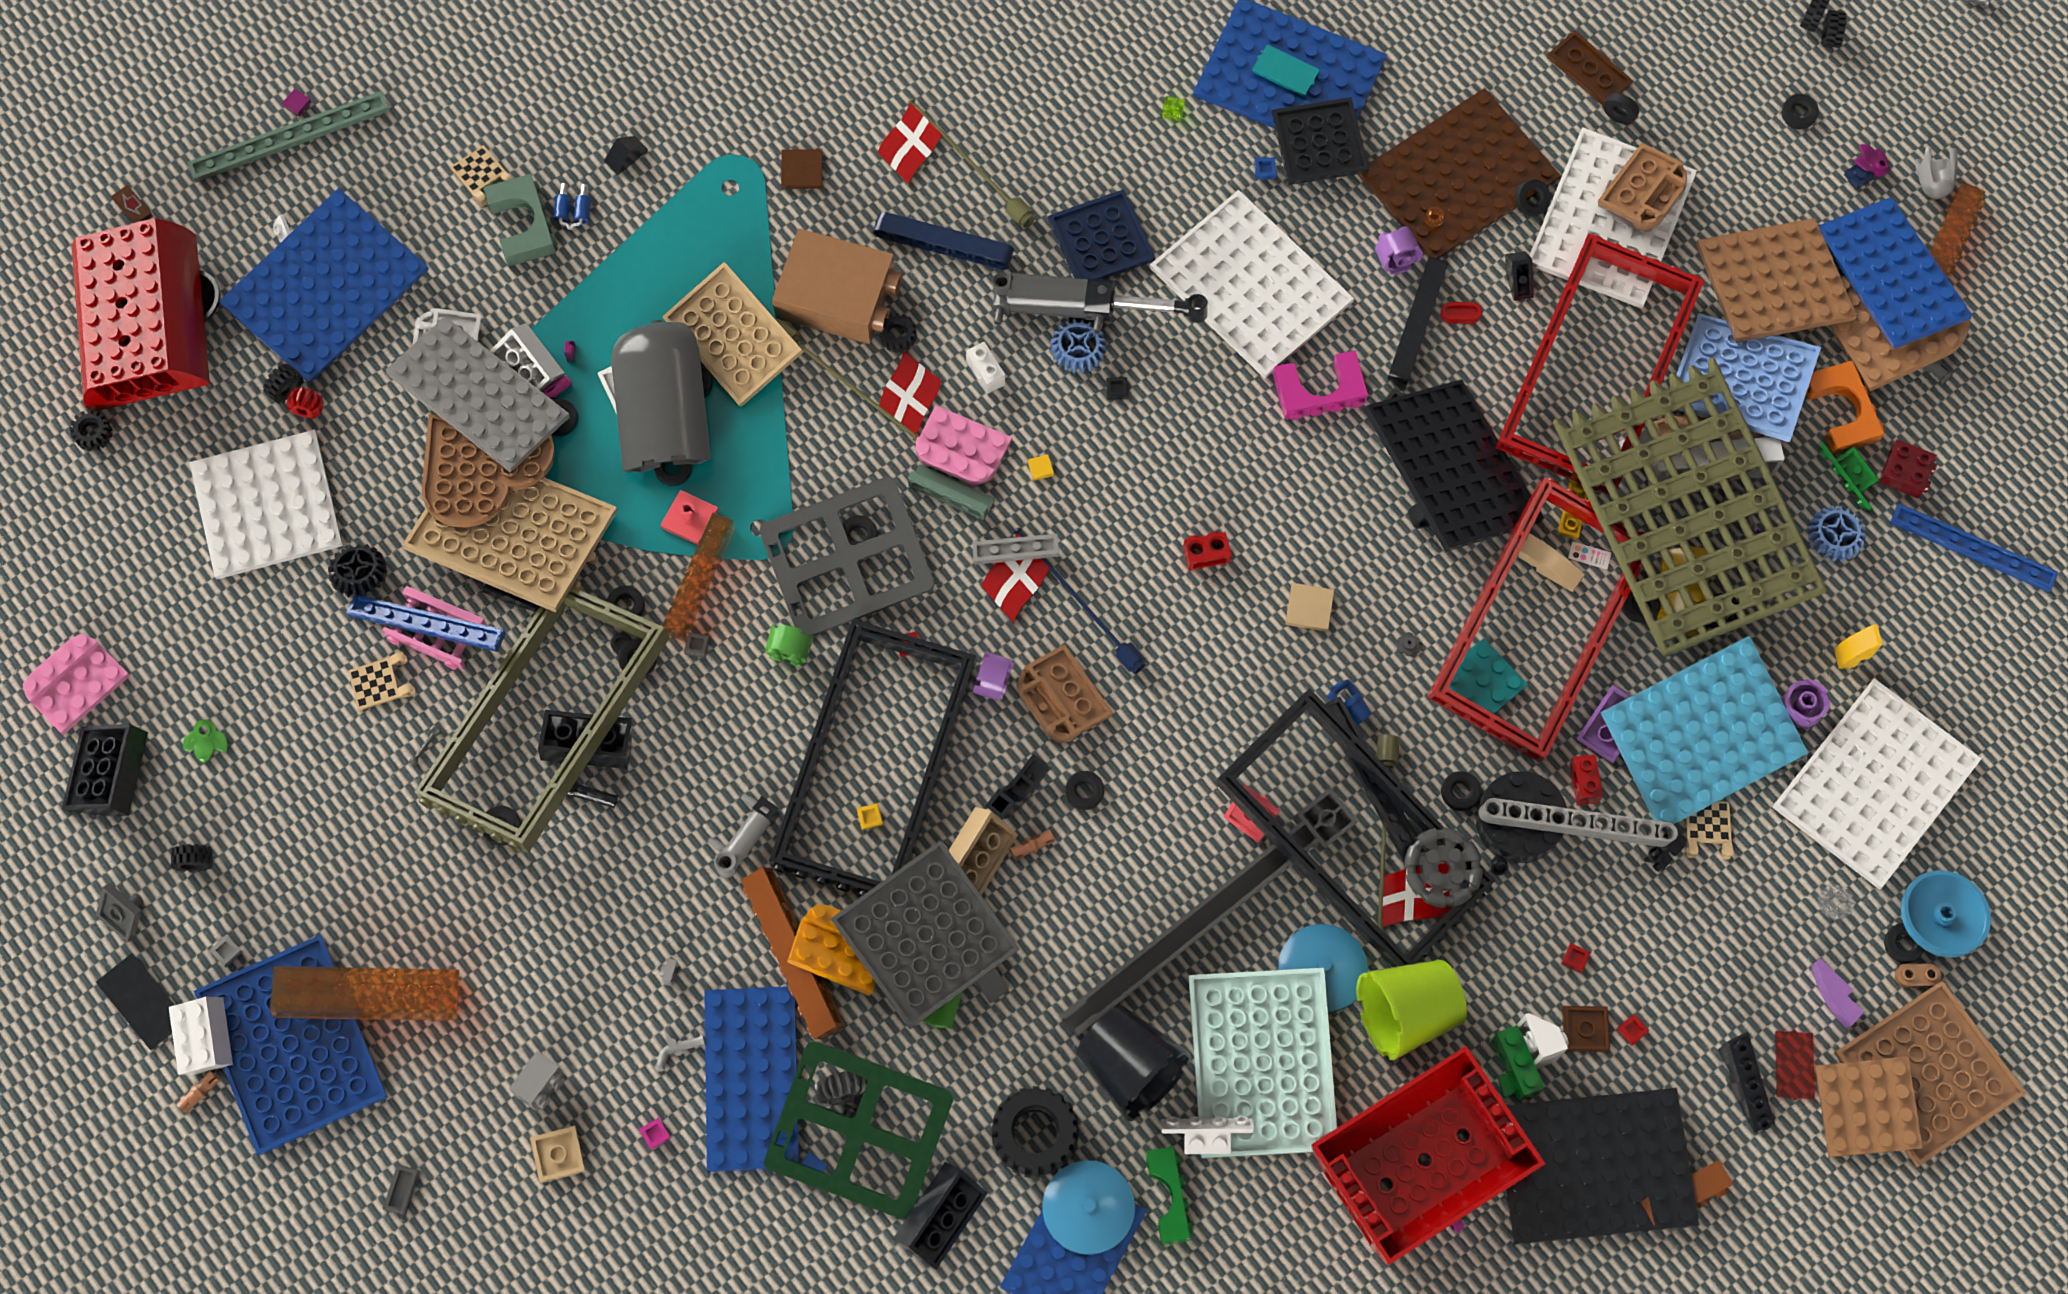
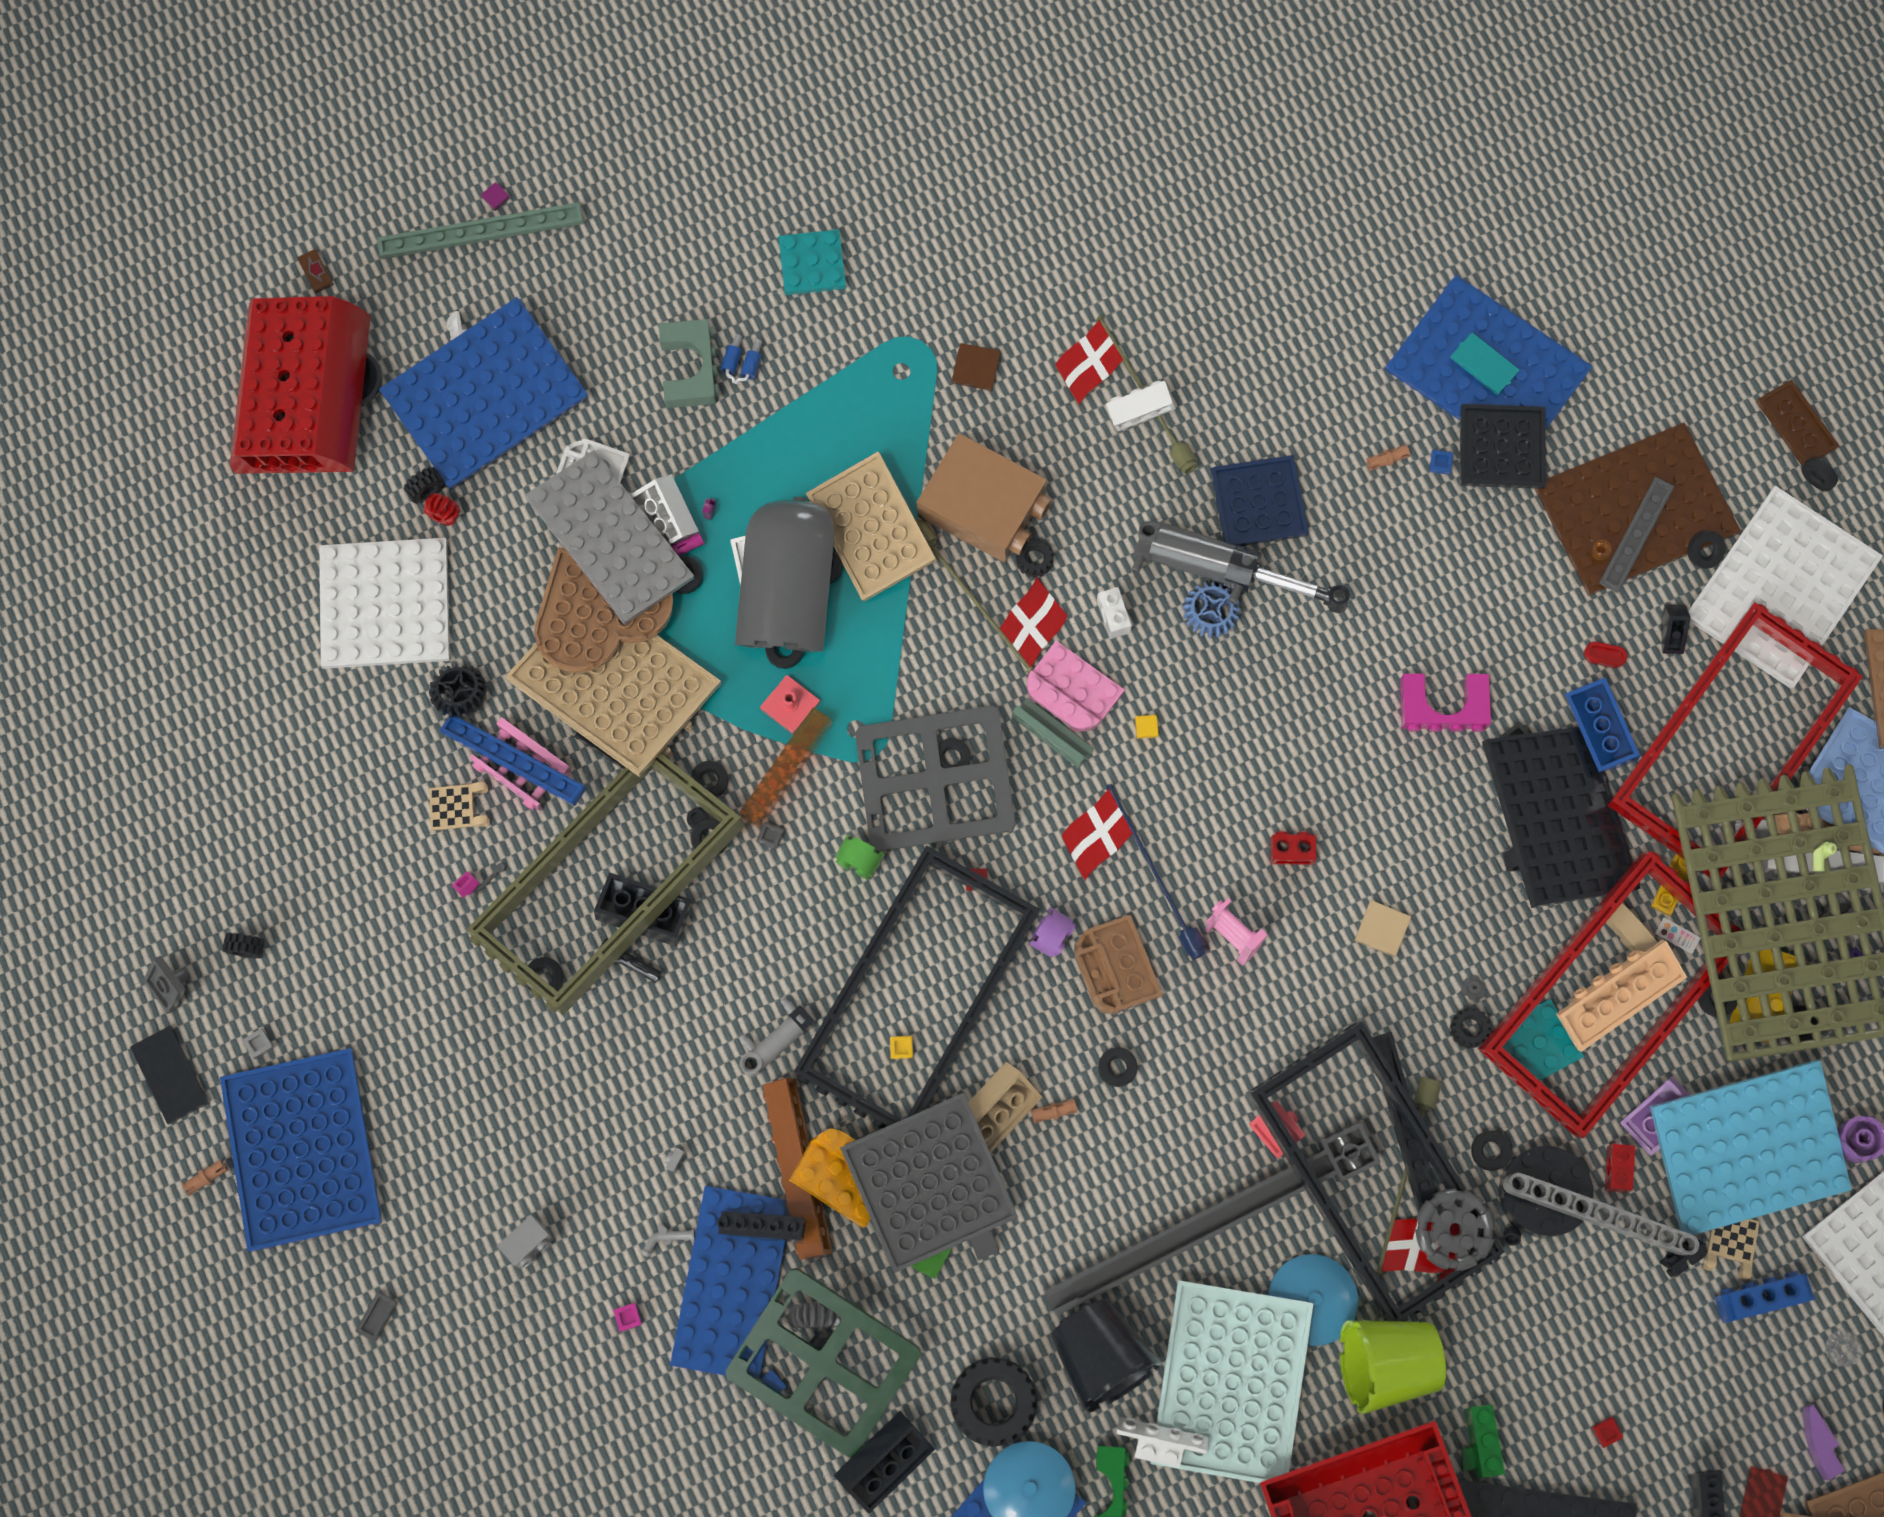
camera: 15 degrees right, 5 degrees up
(73, 681) = (166, 743): bright pink plate -> none
(84, 421) = (227, 482): black tyre -> none
(105, 770) = (179, 838): black slope -> none
(200, 1035) = (217, 1124): white brick -> none
(205, 744) = (277, 832): bright green plate -> none
(365, 993) = (380, 1117): clear orange brick -> none
(404, 753) = (465, 884): none -> dark pink plate
(478, 171) = (658, 304): tan flag -> none
(557, 1154) = (531, 1316): tan plate -> none
(621, 103) = (812, 262): none -> teal plate
(624, 153) = (804, 314): black slope -> none
(771, 1013) = (762, 1226): none -> black slope
(943, 240) = (1100, 471): dark blue beam -> none
(968, 171) = (1140, 405): none -> white brick
(1015, 549) = (1103, 806): light grey plate -> none
(1020, 789) = (1053, 1053): black arch -> none
(1116, 388) = (1240, 660): black tile -> none
(1169, 634) = (1235, 932): none -> bright pink fence
(1173, 108) = (1361, 379): clear neon green plate -> none
(1214, 174) = (1388, 457): none -> nougat pin
(1256, 282) = (1402, 578): white plate -> none
(1356, 705) = (1404, 1040): blue piece -> none
(1398, 250) = (1556, 578): medium lavender brick -> none
(1414, 668) = (1480, 1018): none -> black tyre
(1417, 320) = (1559, 654): black beam -> none
(1464, 196) = (1636, 535): none -> dark grey tile
(1474, 375) = (1602, 726): none -> blue slope
(1542, 1040) = (1513, 1427): white slope -> none
(1548, 614) = (1620, 994): none -> light nougat plate
(1575, 958) = (1567, 1346): red tile -> none
(1586, 1028) = (1560, 1420): reddish brown tile -> none
(1645, 188) = (1825, 565): medium nougat plate -> none
(1705, 443) = (1821, 853): none -> yellowish green arm
(1723, 887) = (1730, 1303): none -> blue brick

